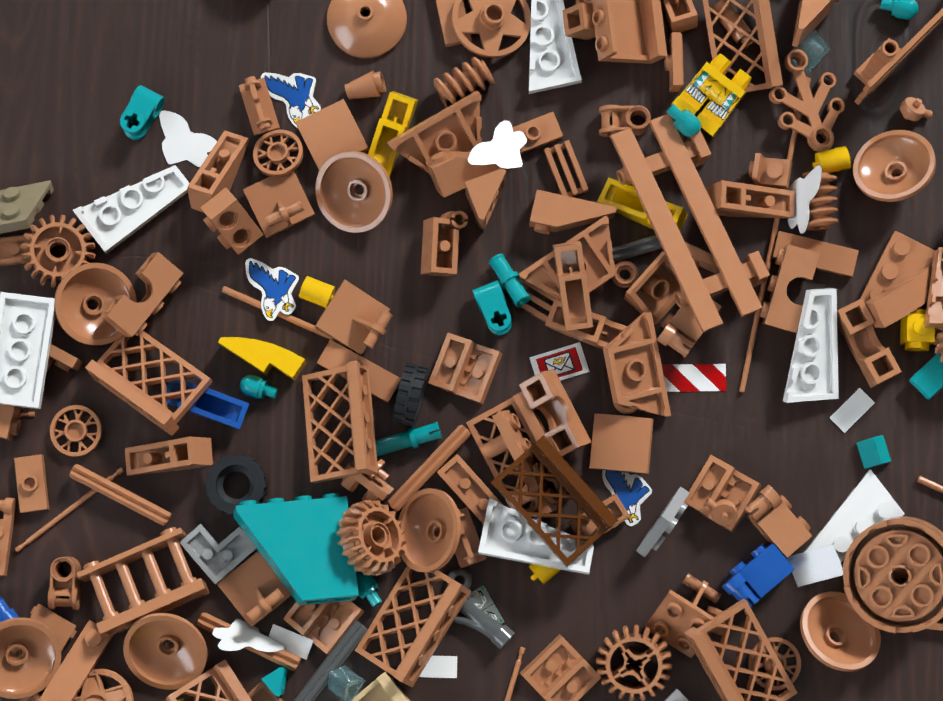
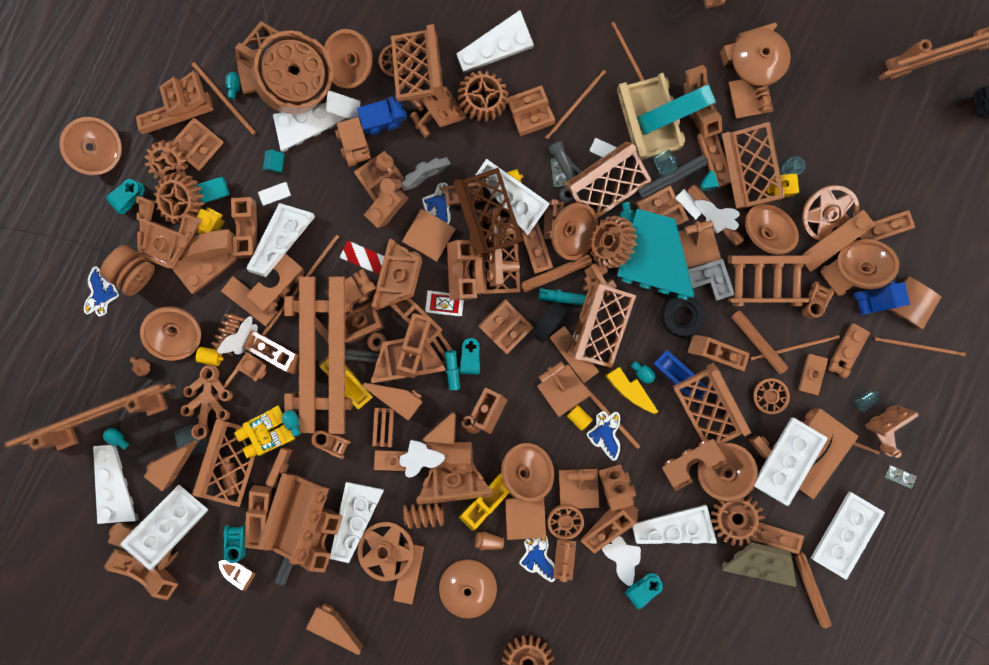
camera: 160 degrees left, 5 degrees up
(694, 457) = (387, 203): none -> nougat hinge

